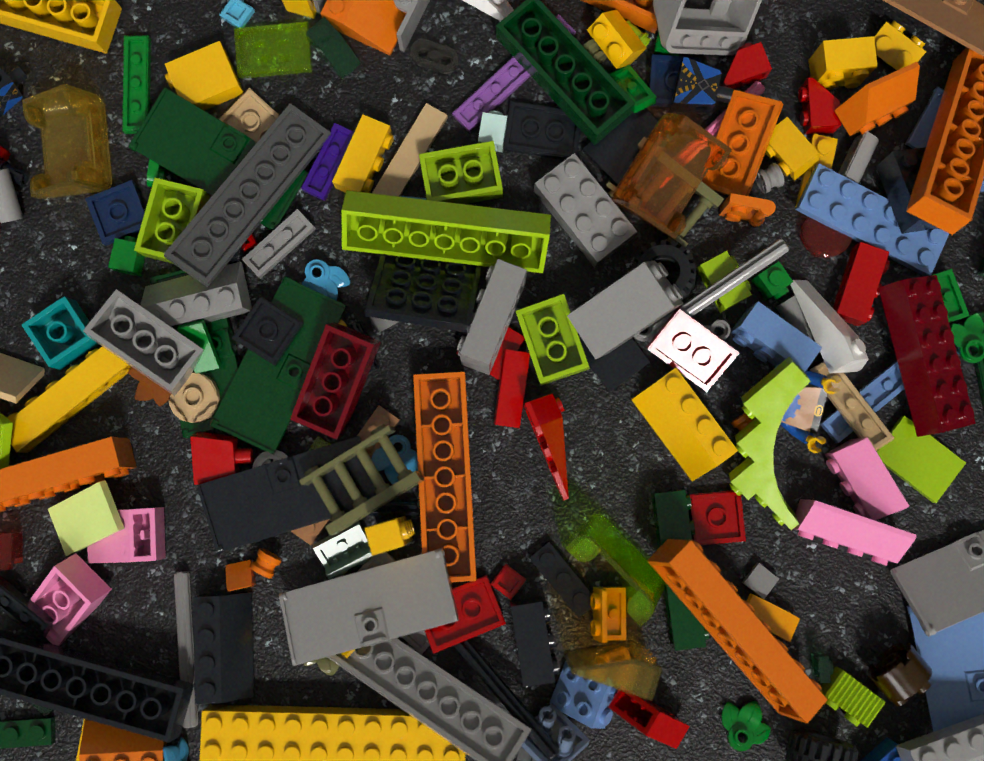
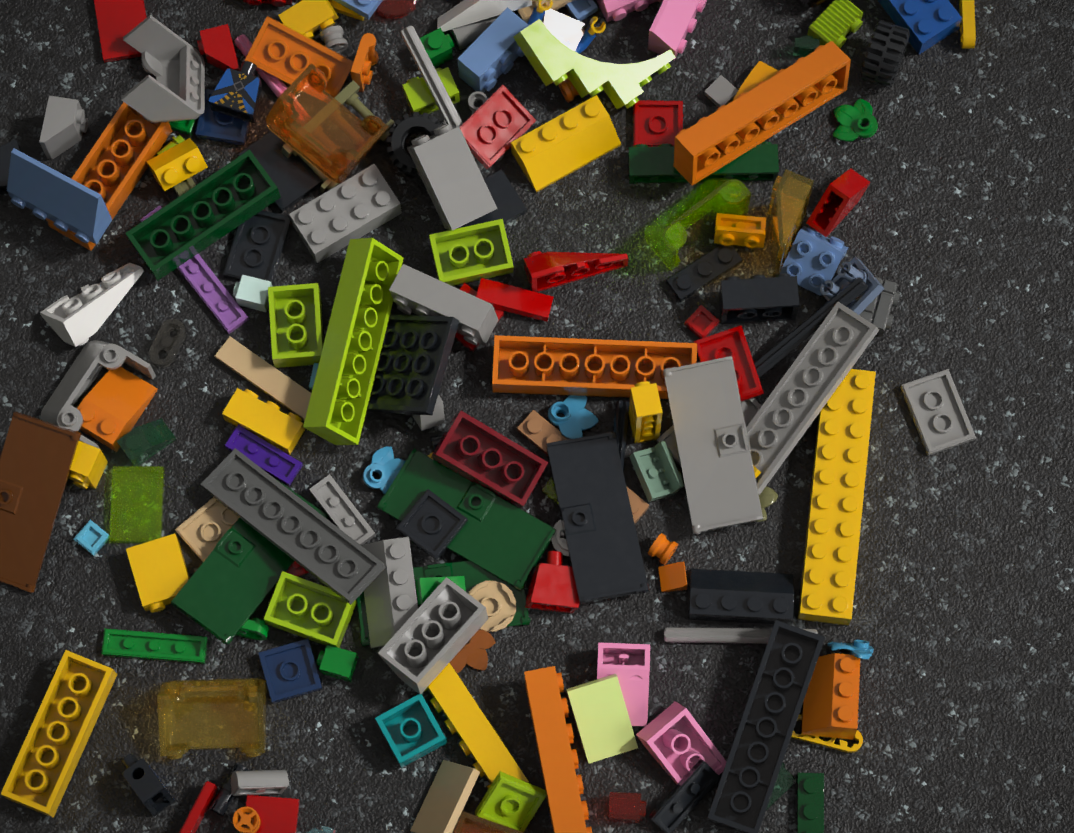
camera: 85 degrees left, 10 degrees down
(384, 492) = (604, 417): olive fence -> none
(634, 87) = (227, 153): green plate -> none

